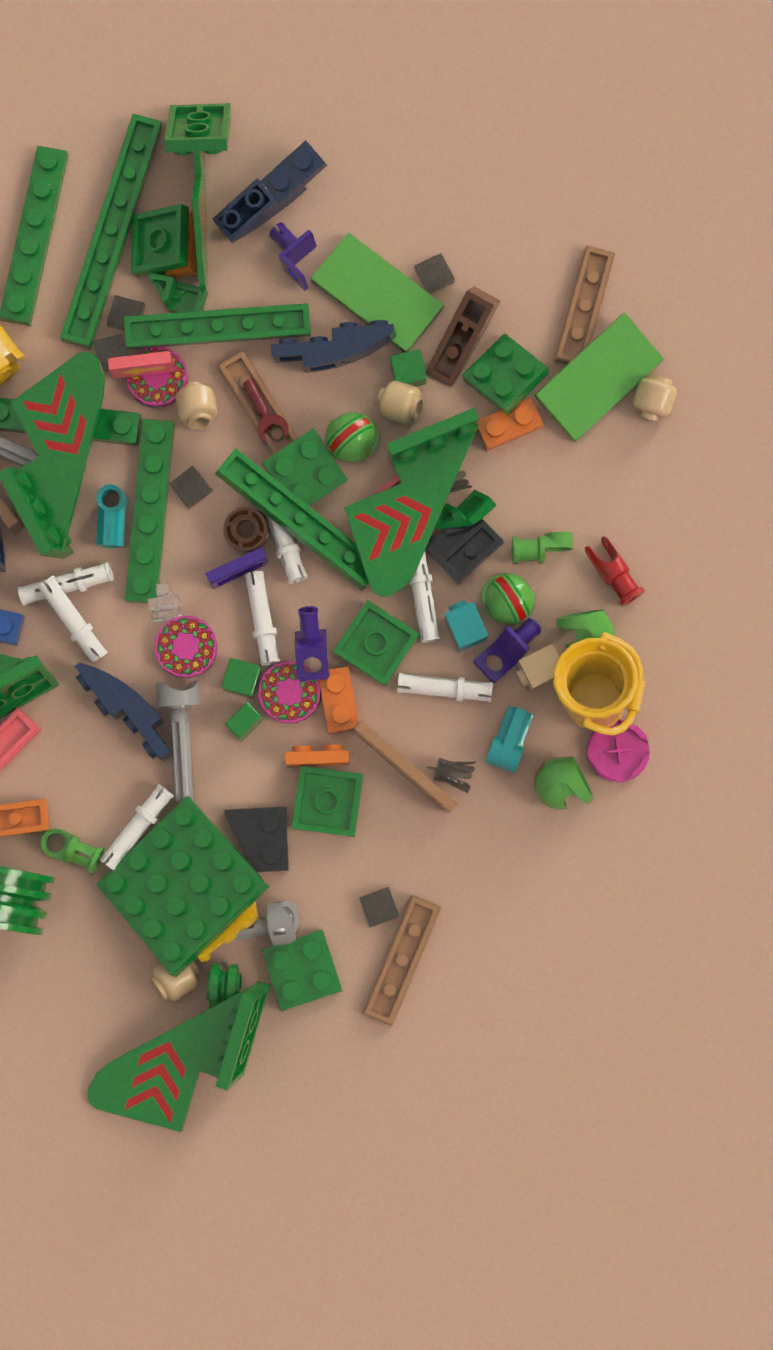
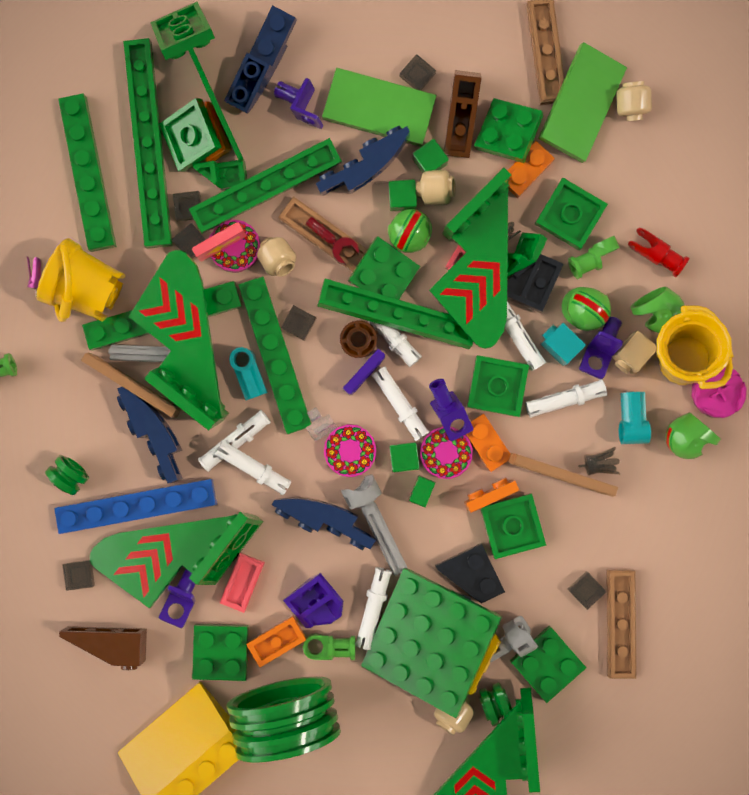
camera: 20 degrees left, 5 degrees up
(76, 794) = (315, 602): none -> dark purple slope
(360, 396) = (402, 195): none -> green piece
(535, 491) = (571, 214): none -> green plate

